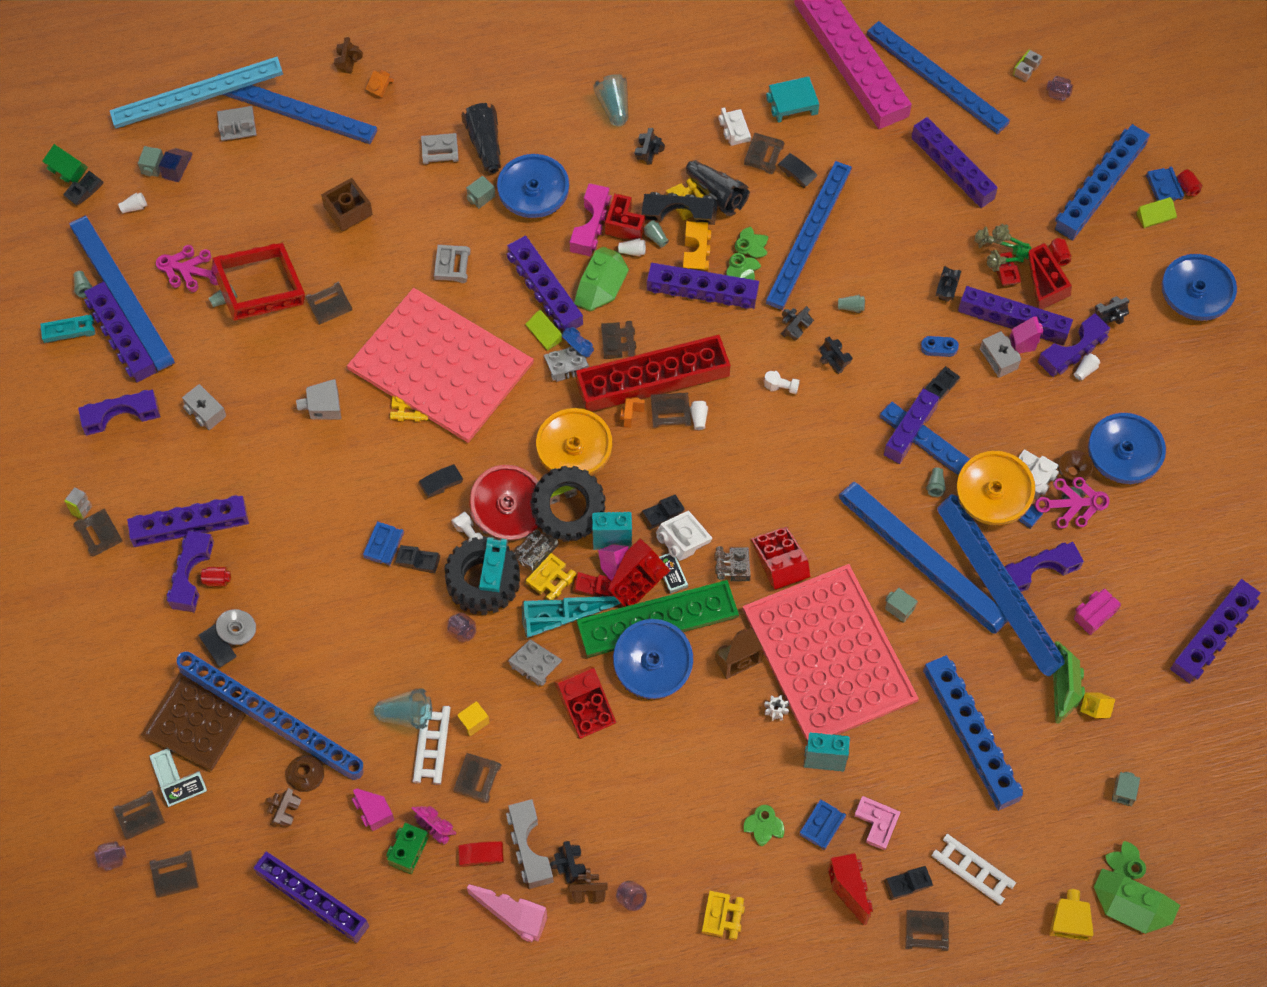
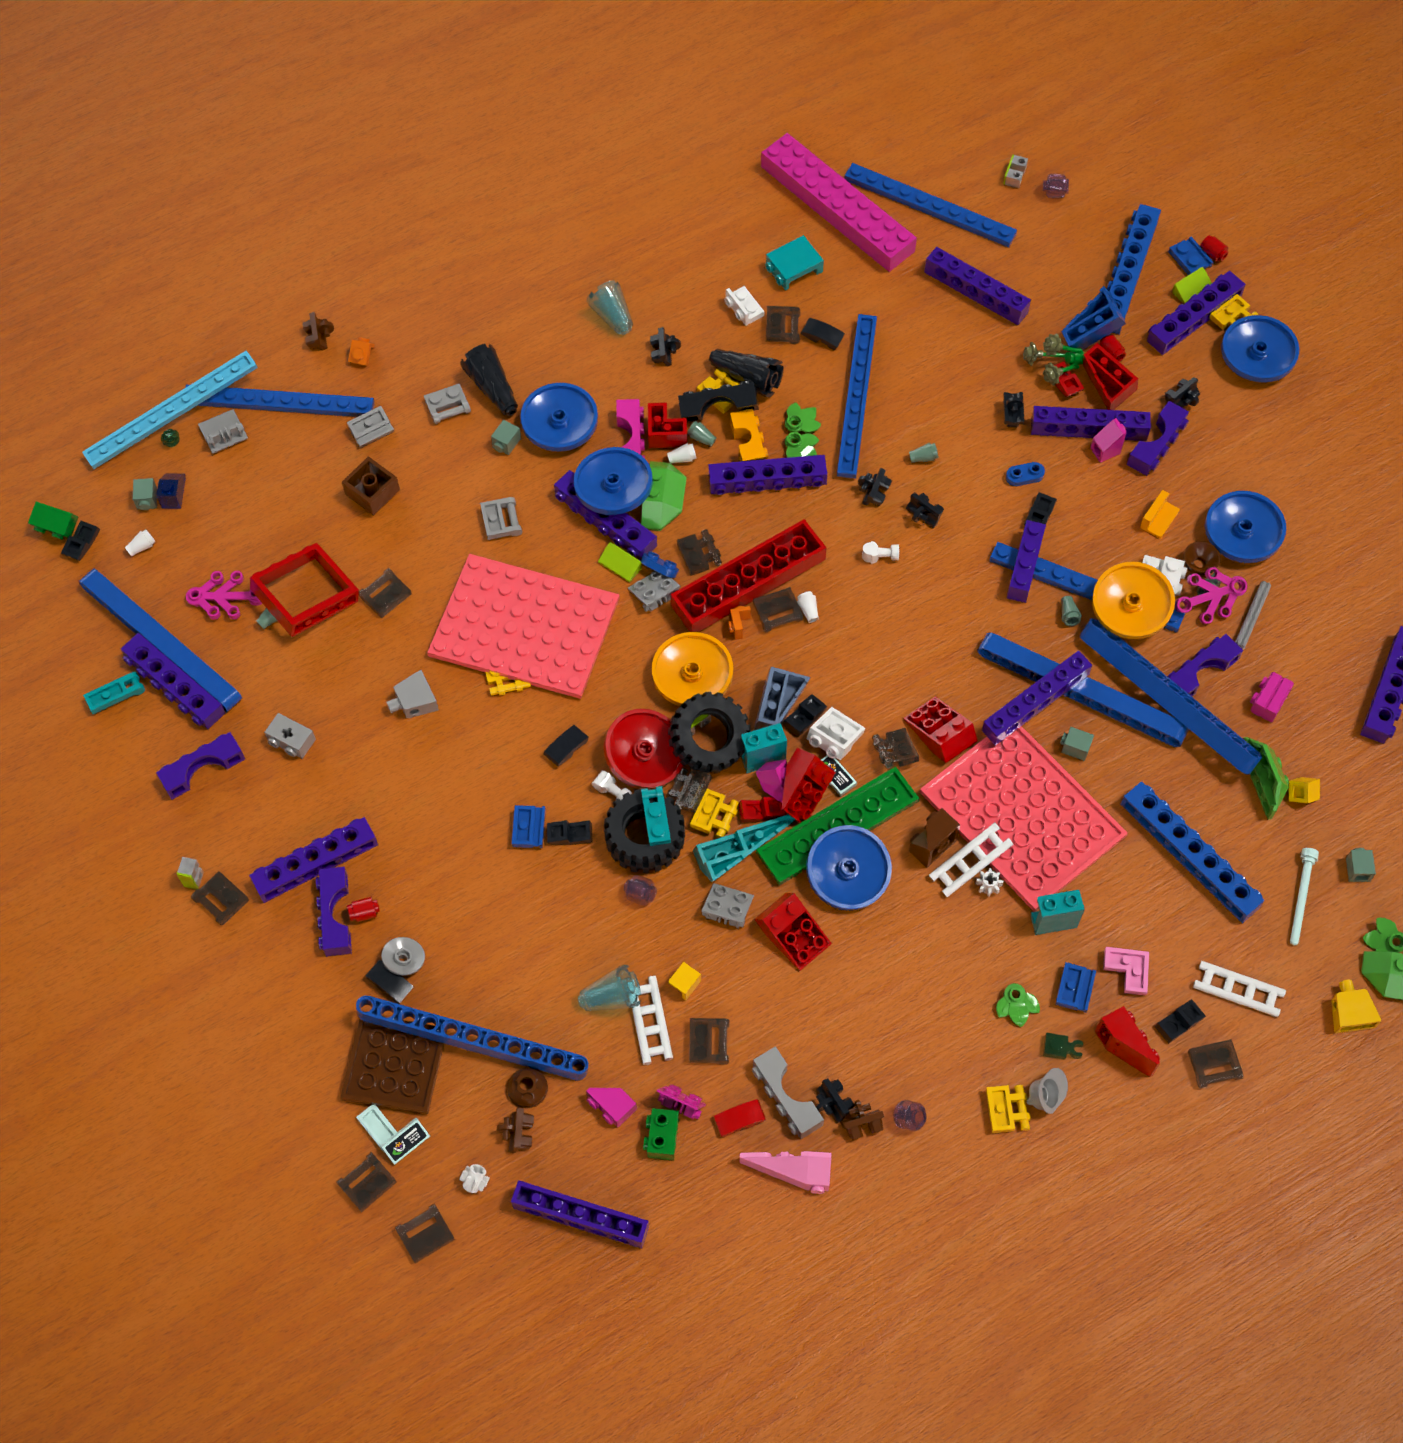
camera: 15 degrees left, 0 degrees up
(81, 284) = (113, 642): sand green cone -> none
(110, 855) = (351, 1233): head -> none
(189, 121) = (170, 437): none -> clear green plate
(231, 838) = (474, 1178): none -> white gear
(365, 152) = (370, 426): none -> light grey plate
(559, 255) = (613, 480): none -> blue dish
(643, 489) = (779, 696): none -> sand blue wedge
(759, 692) = (958, 857): none -> white bar
(765, 910) = (1048, 1091): none -> light grey piece
(789, 873) = (1058, 1046): none -> clear green plate
(875, 552) = (1036, 697): none -> dark purple brick
(1000, 354) = (1088, 466): light grey brick -> none
(1049, 223) = (1094, 322): none -> blue wedge
(1051, 417) = (1159, 516): none -> light orange panel
(1080, 768) = (1309, 857): none -> light aqua piece
(1087, 366) = (1178, 454): white cone -> none
(1106, 531) = (1253, 614): none -> light grey axle
(1179, 227) = (1194, 313): none -> dark purple brick
(1184, 245) = (1230, 311): none -> yellow plate

